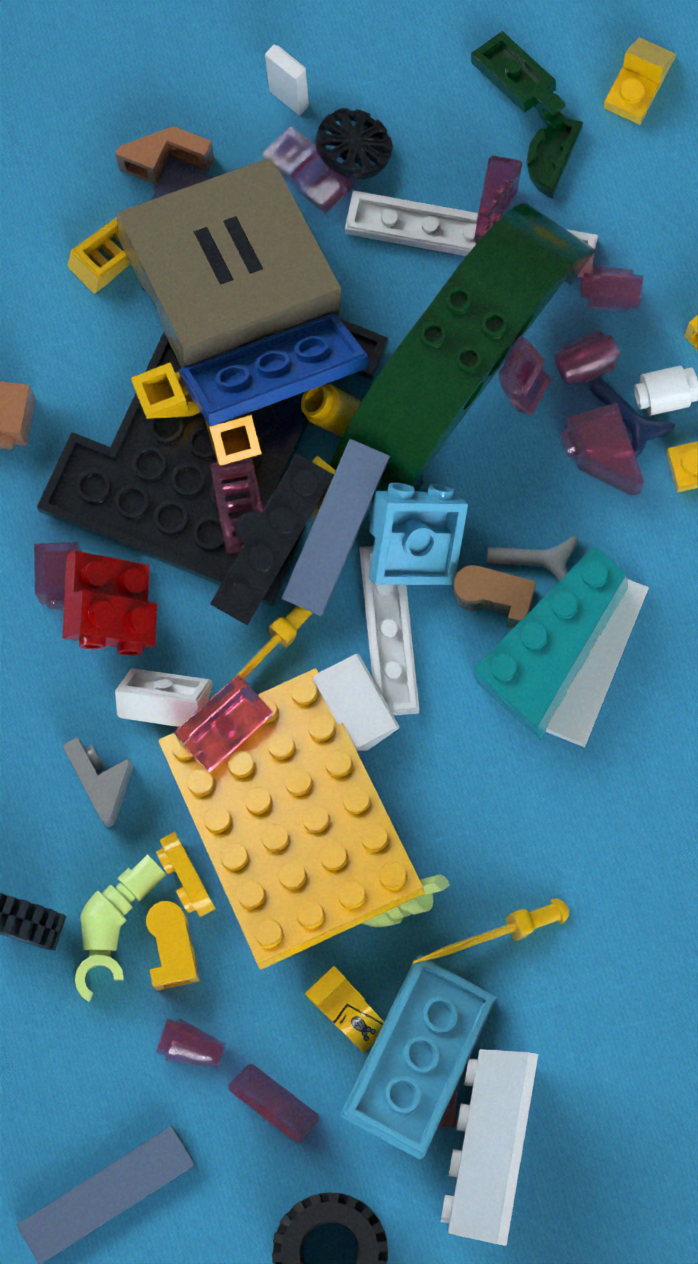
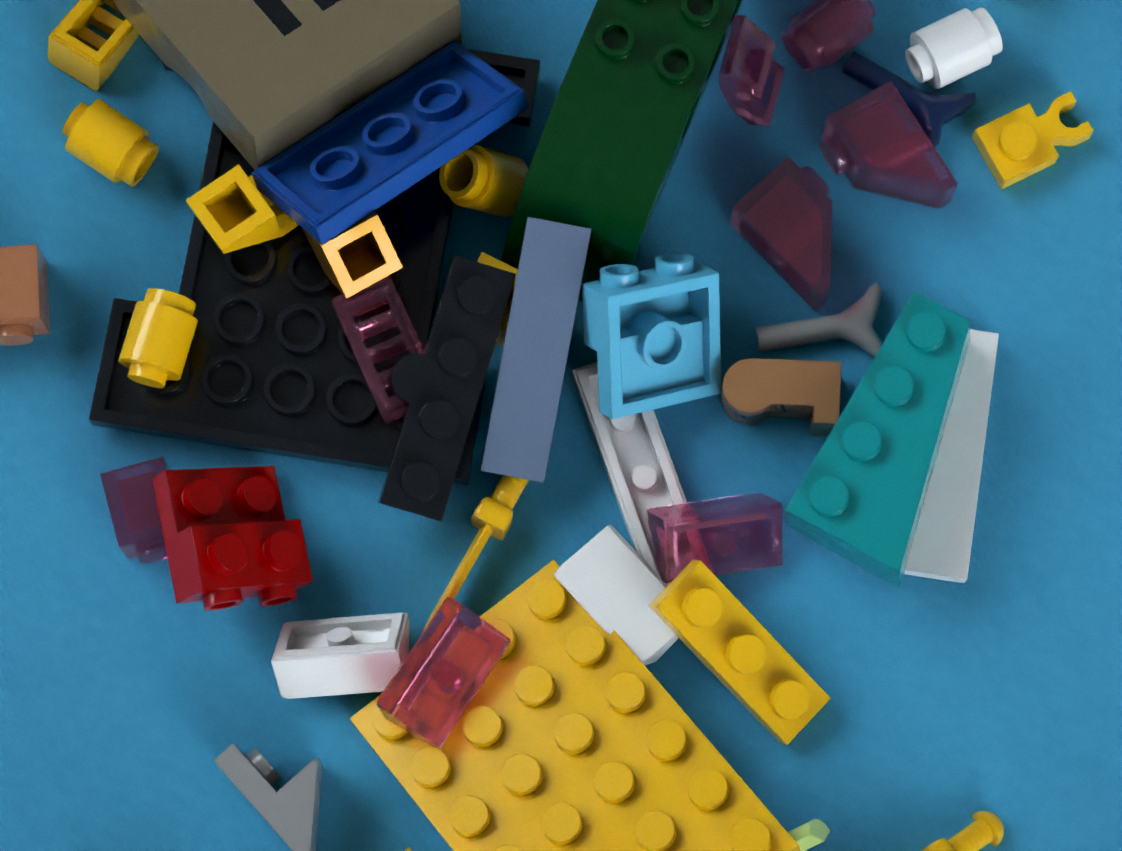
camera: 20 degrees left, 0 degrees up
(93, 464) = (159, 338): none -> yellow brick
(94, 329) = (109, 142): none -> yellow brick
(421, 756) = (739, 651): none -> yellow plate
(426, 677) = (720, 532): none -> clear pink slope
(527, 484) = (791, 228): none -> clear pink slope

